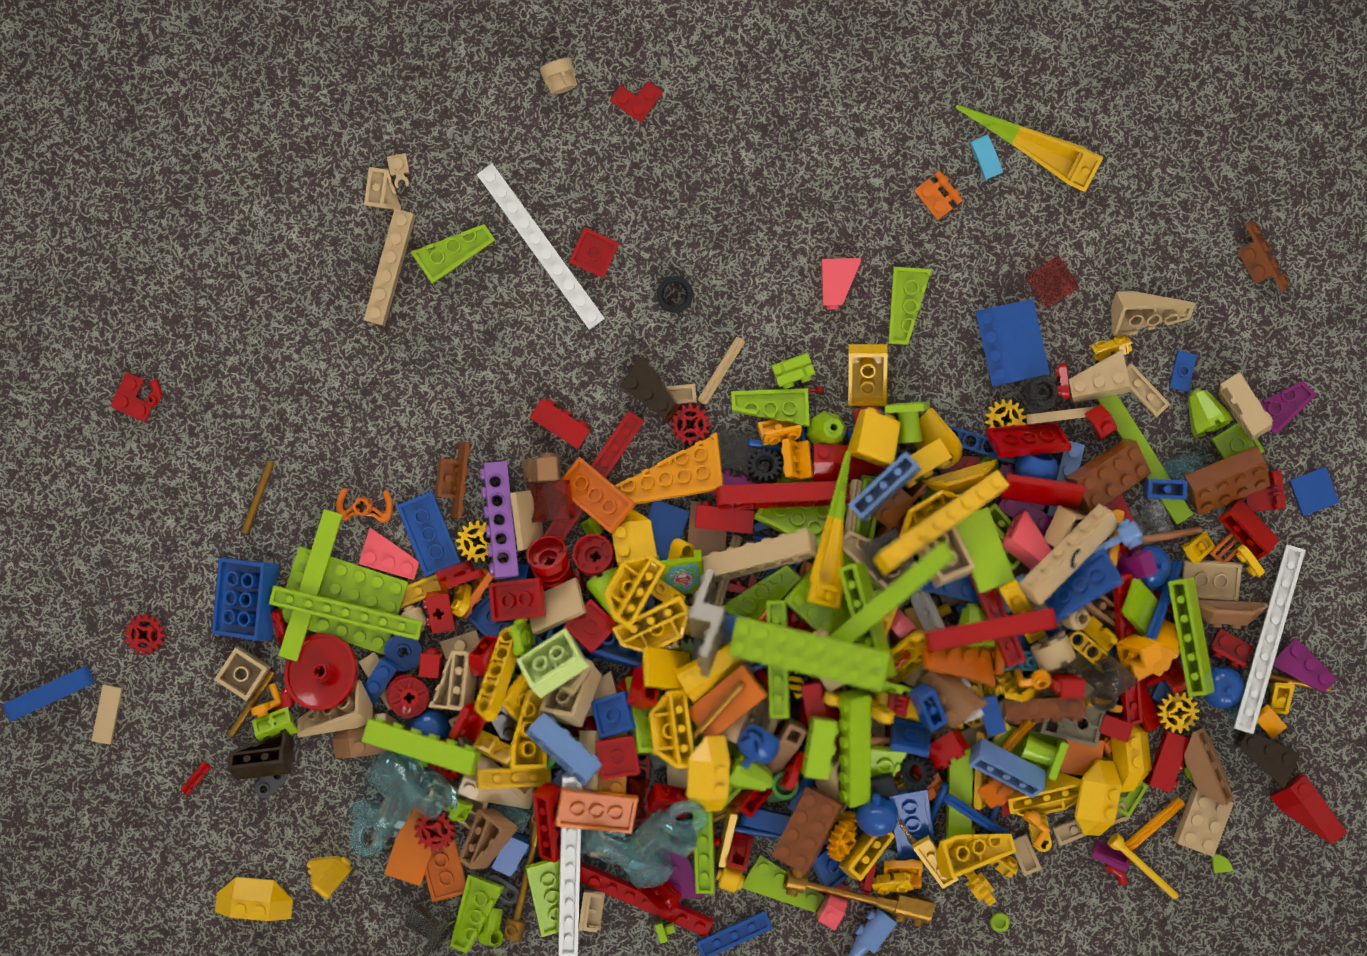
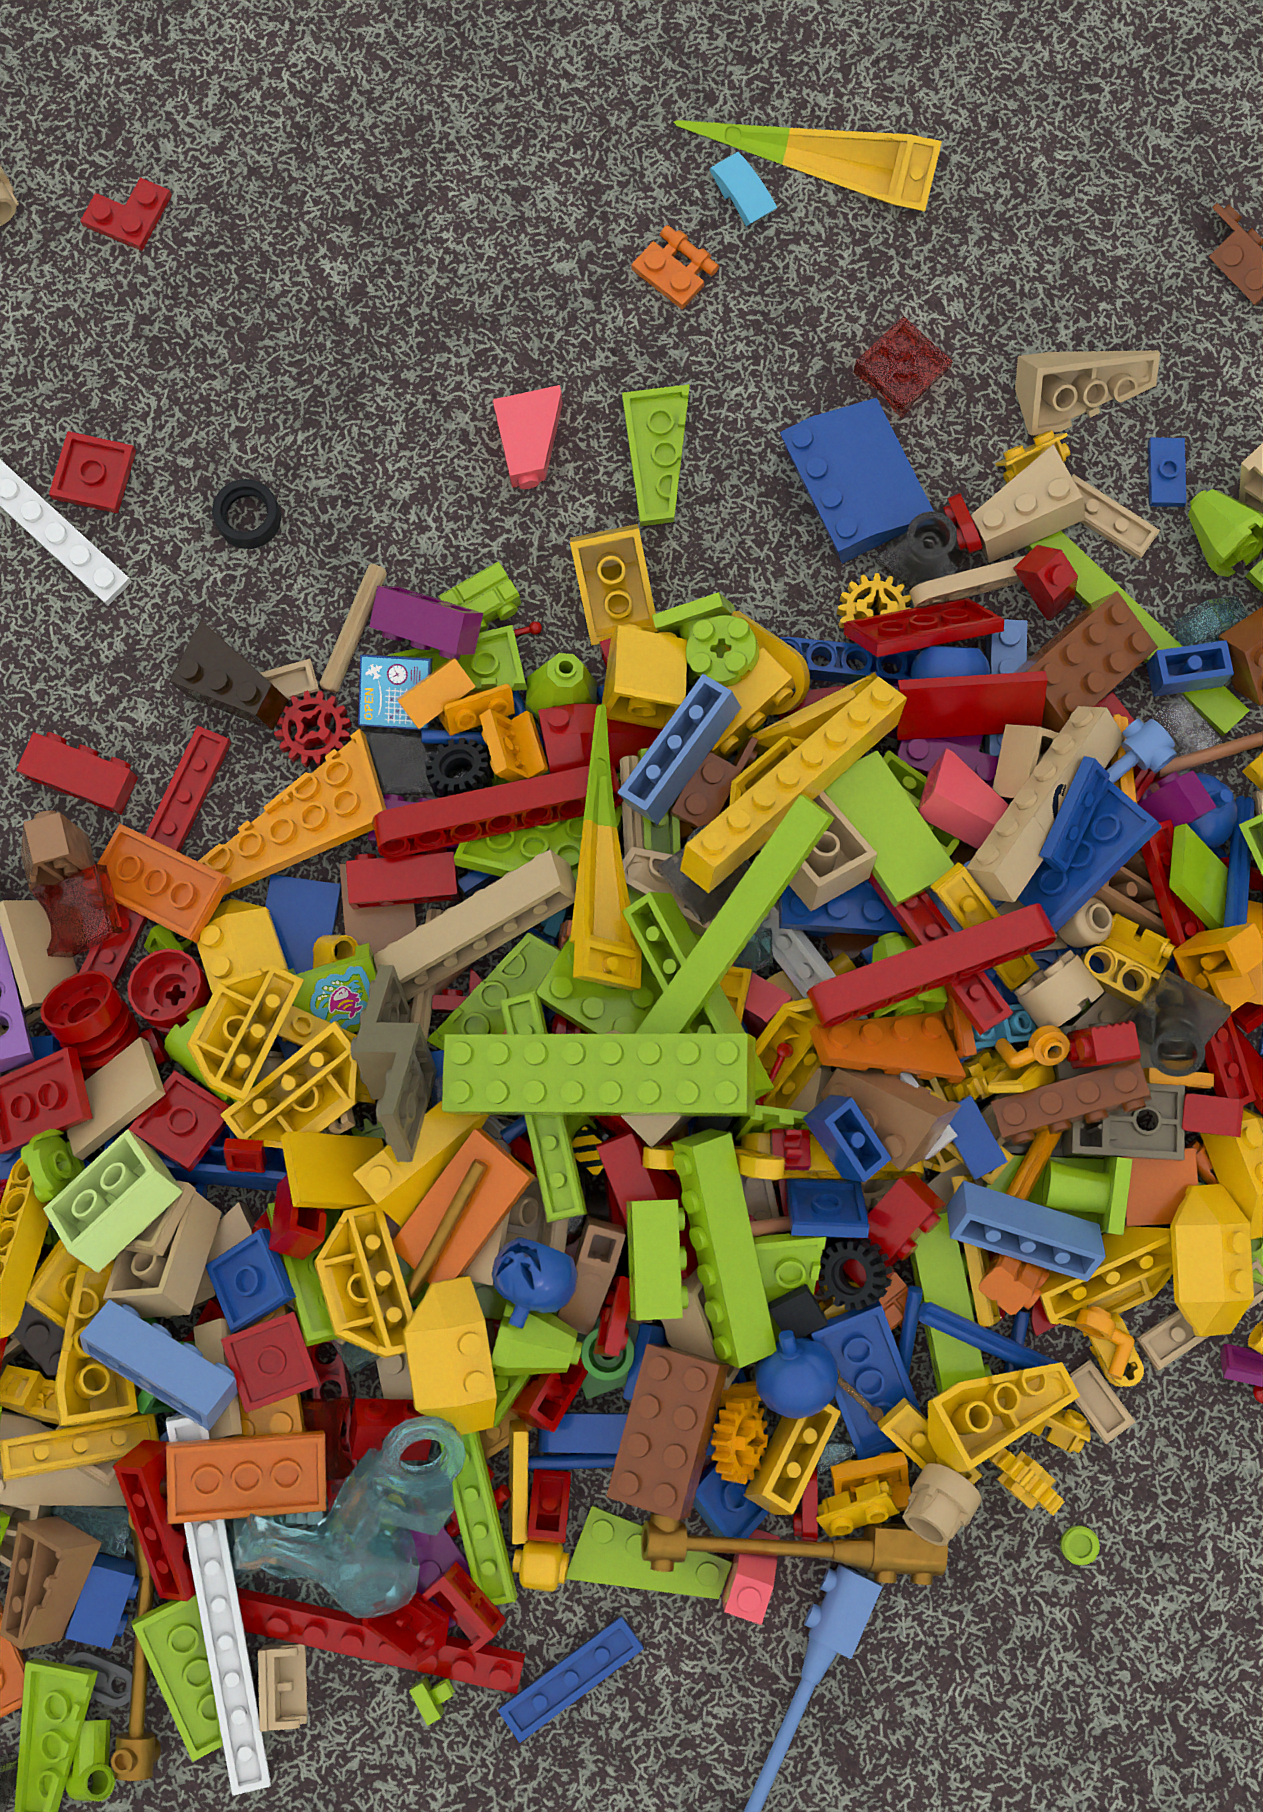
camera: 15 degrees left, 10 degrees down
(621, 651) = (245, 1155): none -> red tile
(690, 891) = (466, 1605): none -> red hinge
(738, 415) = (382, 682): none -> medium azure tile
(761, 422) = (435, 691): none -> light orange tile
(762, 379) = (425, 621): none -> magenta brick
(923, 444) = (711, 634): none -> lime plate
(934, 890) = (940, 1504): none -> tan piece
(1082, 565) = (1074, 814): none -> blue tile

